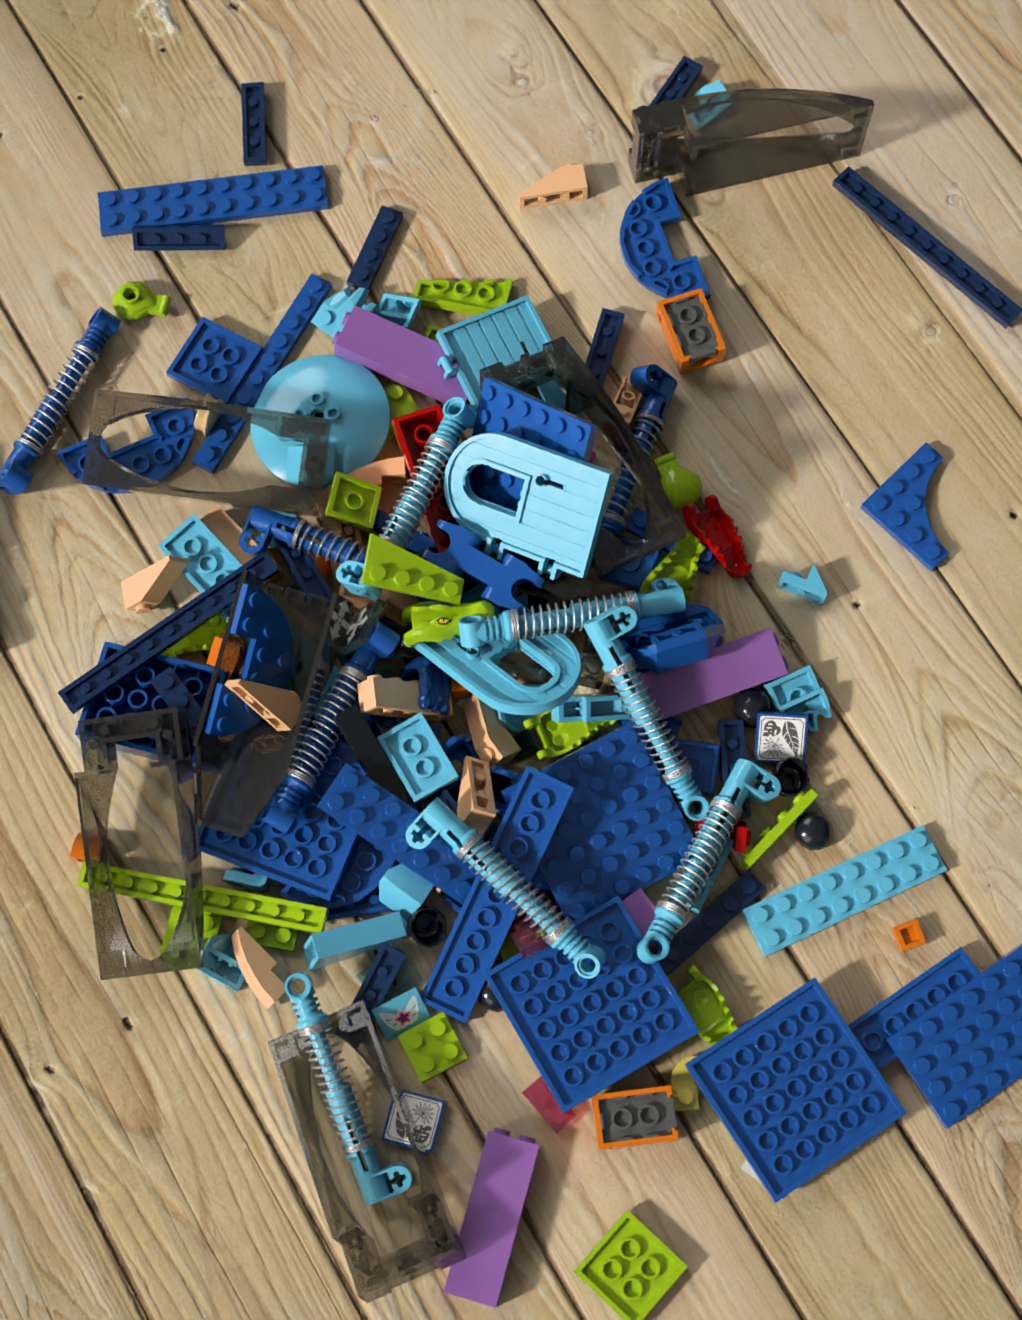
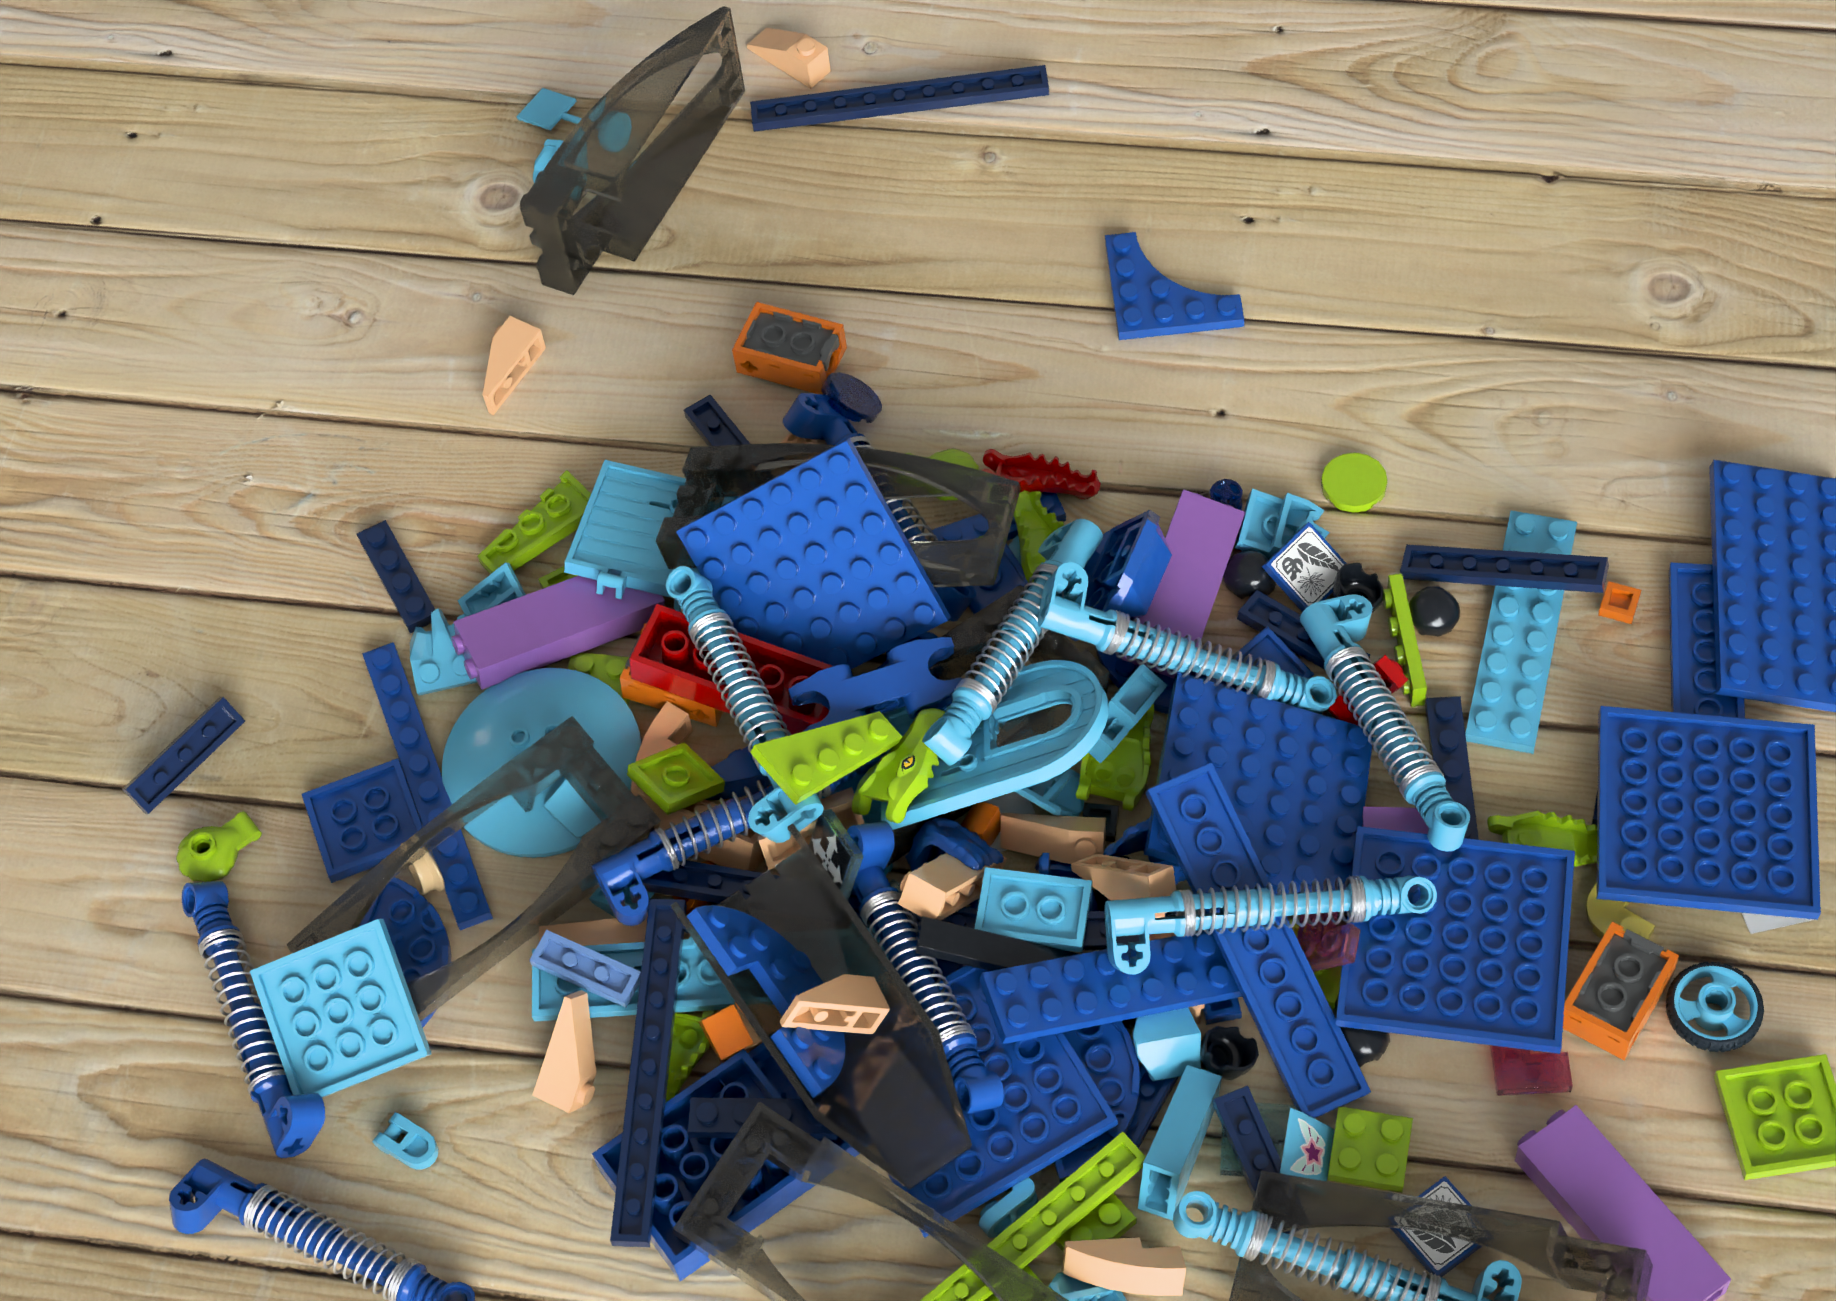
camera: 45 degrees left, 15 degrees down
(51, 549) = (416, 1149): none -> medium azure plate
(82, 448) = (340, 1011): none -> medium azure plate
(201, 550) = (586, 968): none -> medium blue plate
(214, 200) = (173, 695): blue plate -> none
(254, 124) = (132, 591): dark blue plate -> none
(548, 519) = (892, 575): door -> none
(646, 247) = (659, 329): blue plate -> none
(652, 1163) = (1719, 992): none -> medium azure wheel
(679, 81) = (510, 190): dark blue plate -> none
(685, 392) = (851, 397): none -> clear blue tile
(749, 60) = (547, 109): none -> medium azure piece
(795, 650) = (1227, 490): none -> clear blue wheel
(810, 589) = (1164, 436): medium azure slope -> none
(869, 718) = (1354, 482): none -> lime tile
(871, 853) = (1505, 568): none -> dark blue plate
(905, 160) = (793, 54): none -> light nougat slope

